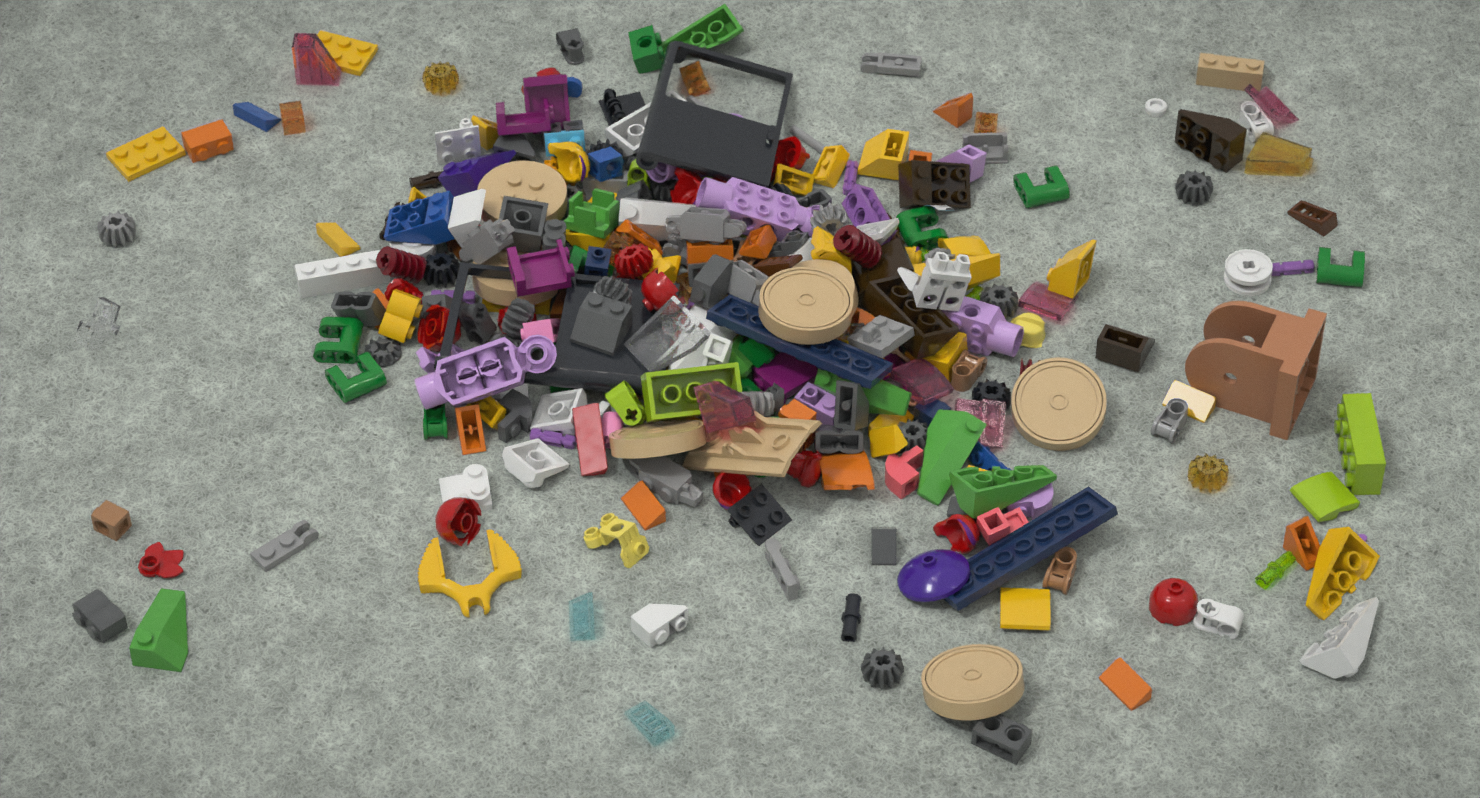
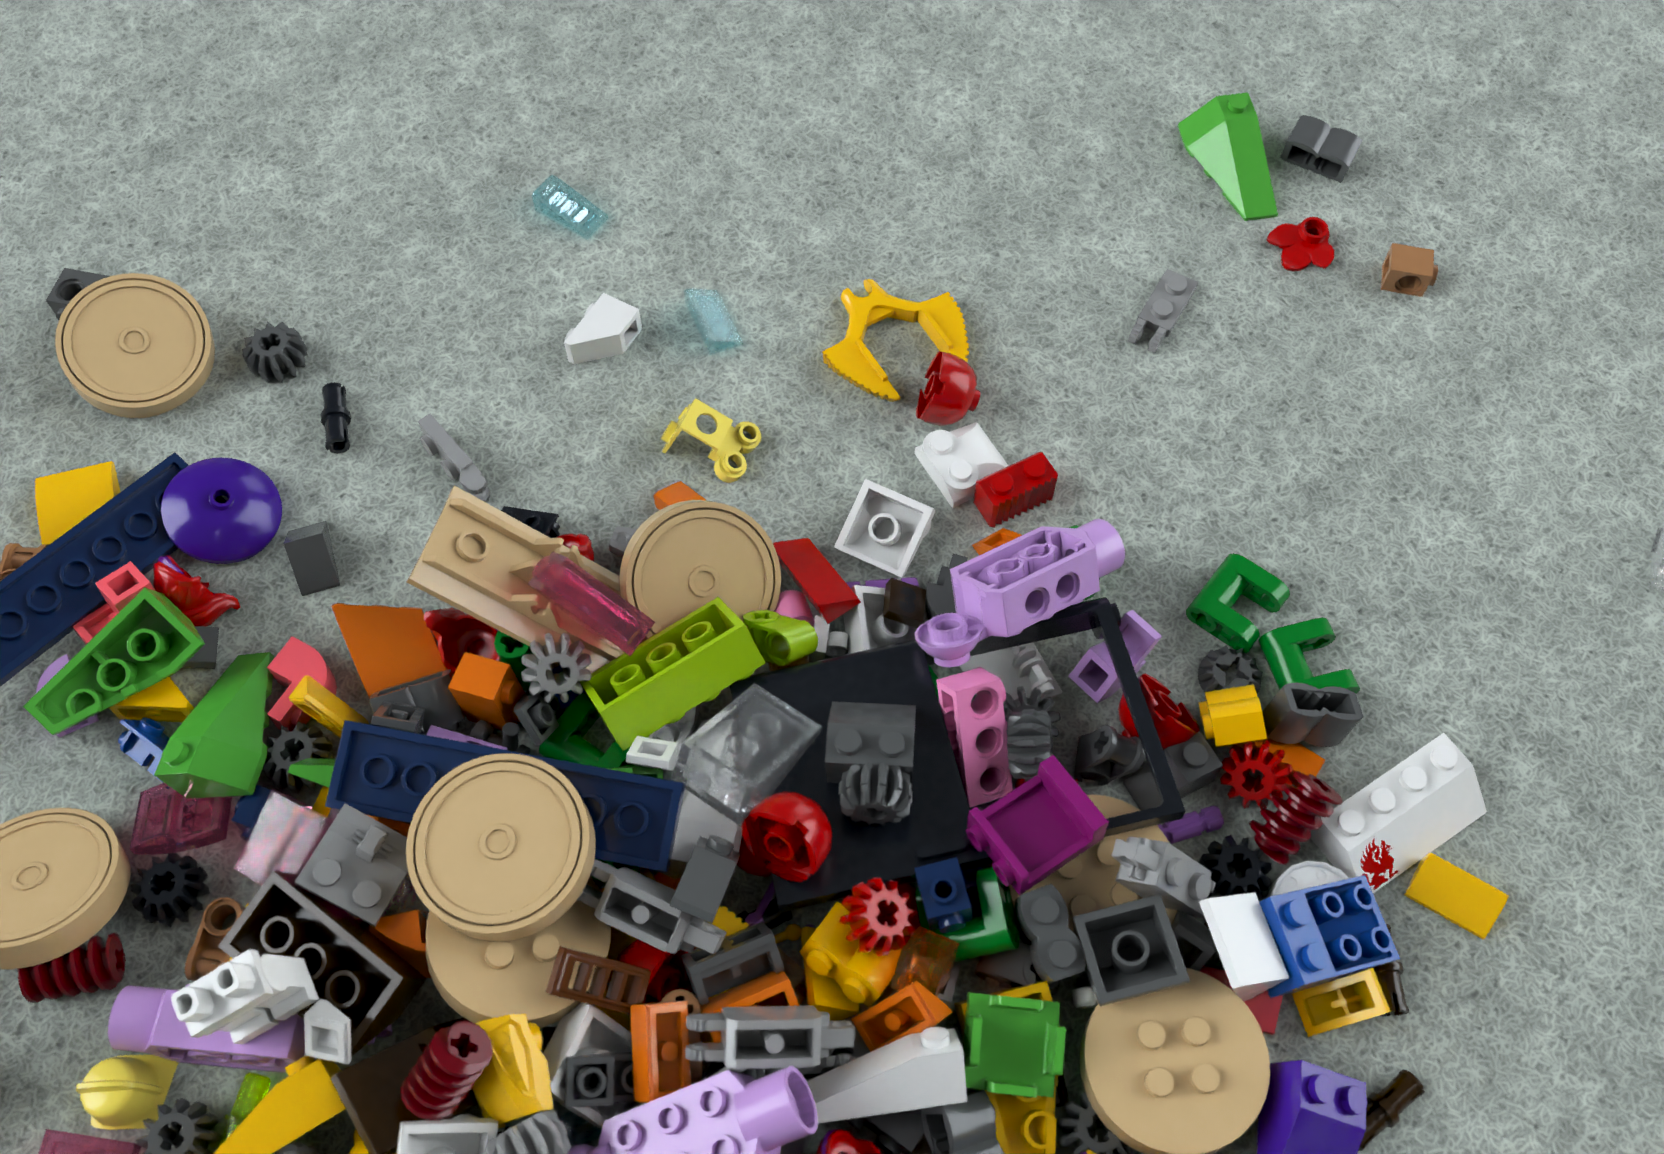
camera: 160 degrees right, 15 degrees up
(445, 459) = (1015, 489): none -> red brick
(545, 413) = (904, 603): none -> dark brown tile

